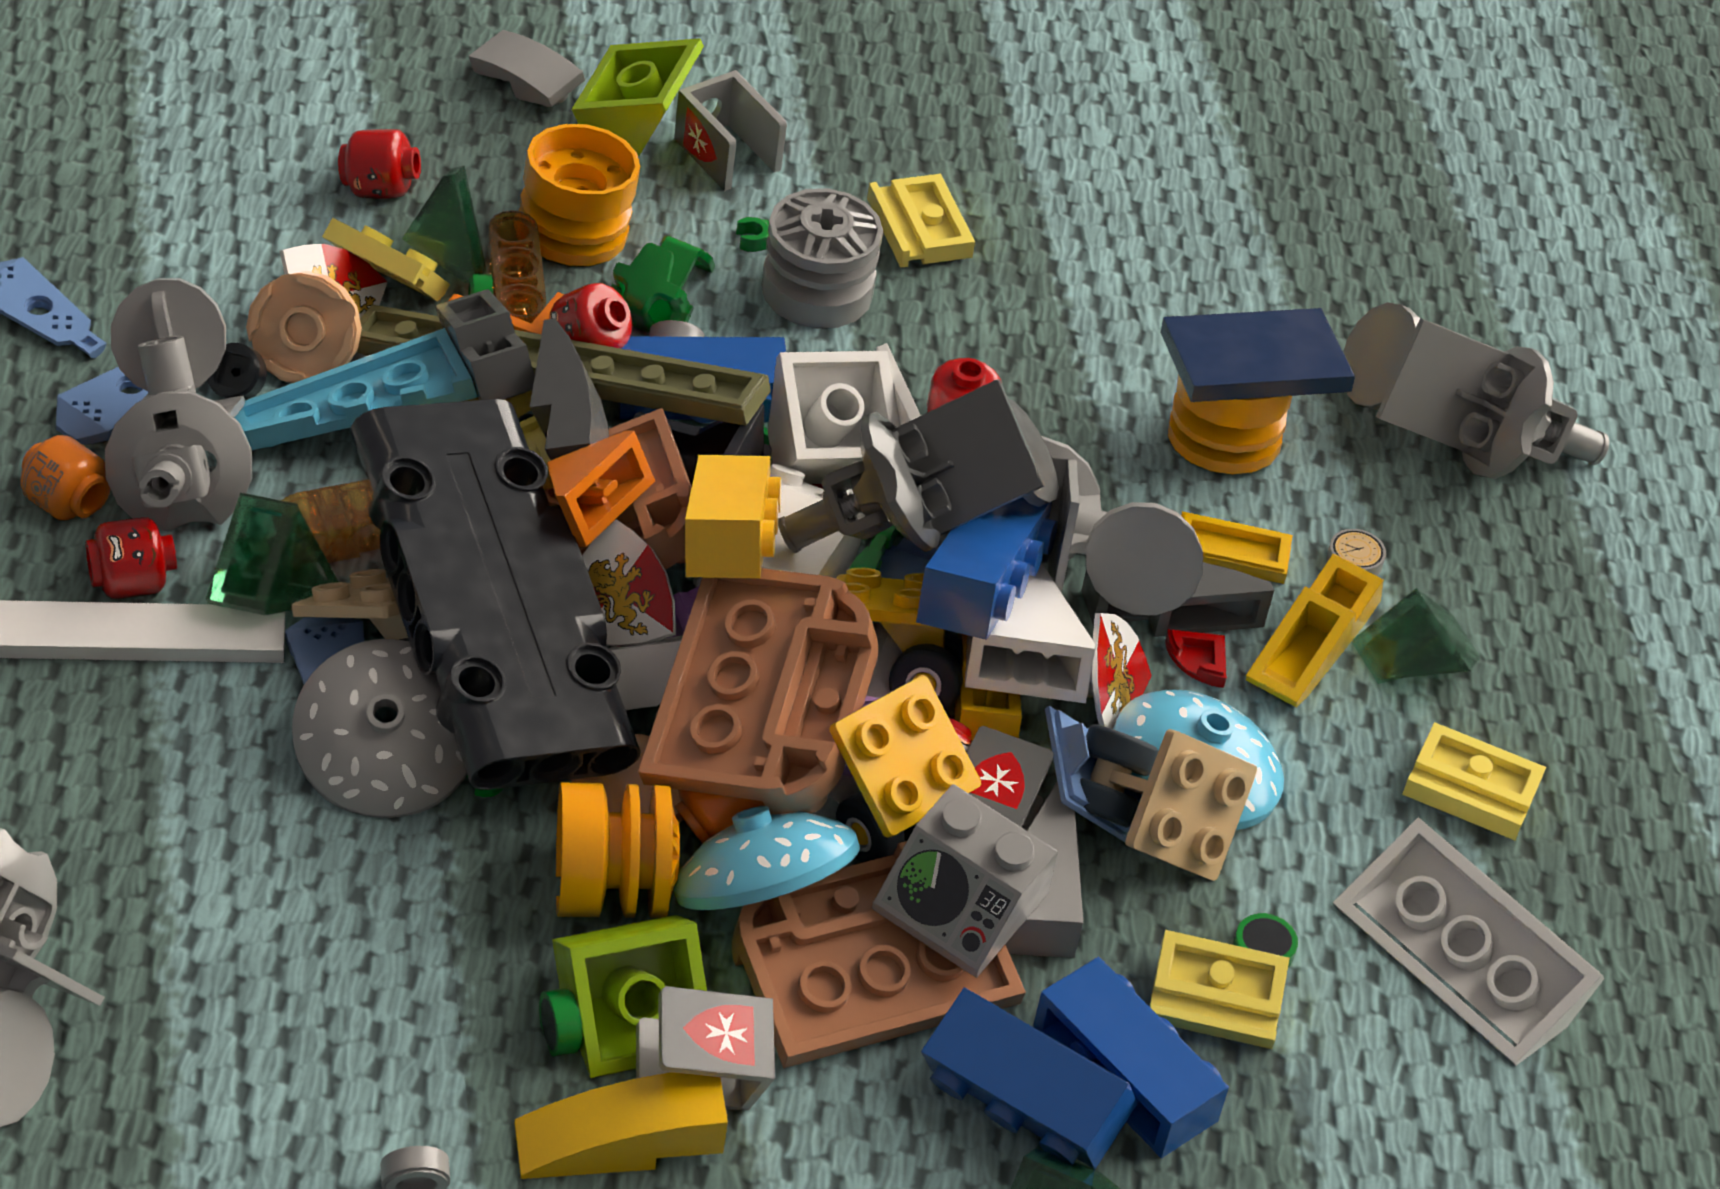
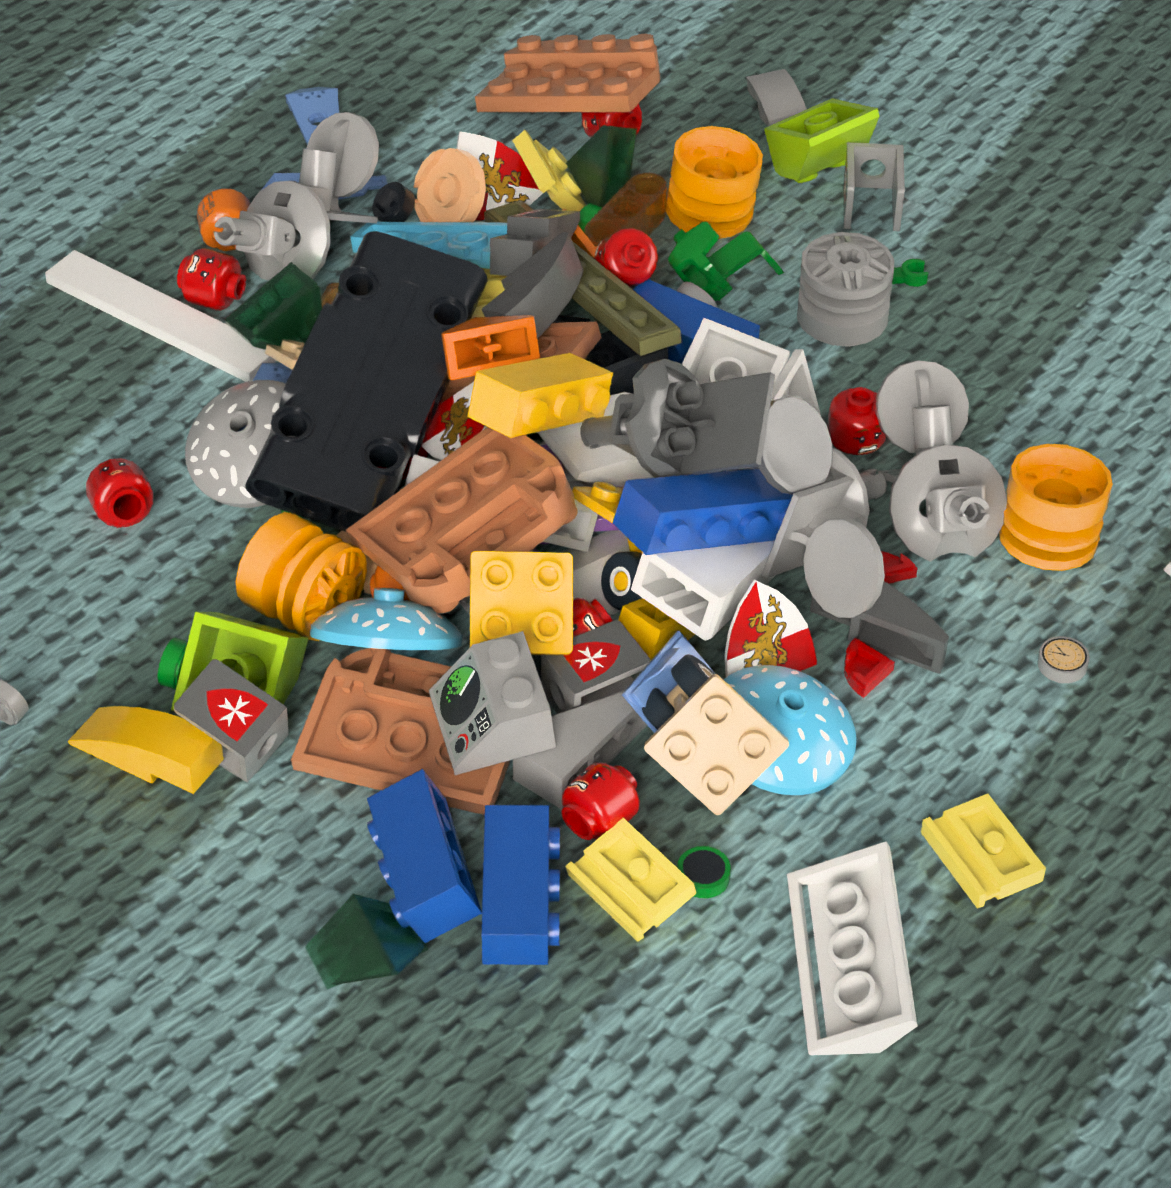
camera: 45 degrees right, 0 degrees up
(292, 863) = (119, 492): none -> red head
(305, 130) = (573, 75): none -> nougat plate
(921, 220) = (961, 300): light yellow plate -> none
(1123, 925) = (599, 800): none -> red head
(1128, 425) = (924, 413): none -> light grey piece
(1243, 547) = (970, 610): yellow tile -> none
(1256, 354) = (1076, 472): dark blue tile -> none
(1316, 630) = (966, 691): yellow slope -> none
(1415, 641) = (1046, 736): clear green slope -> none

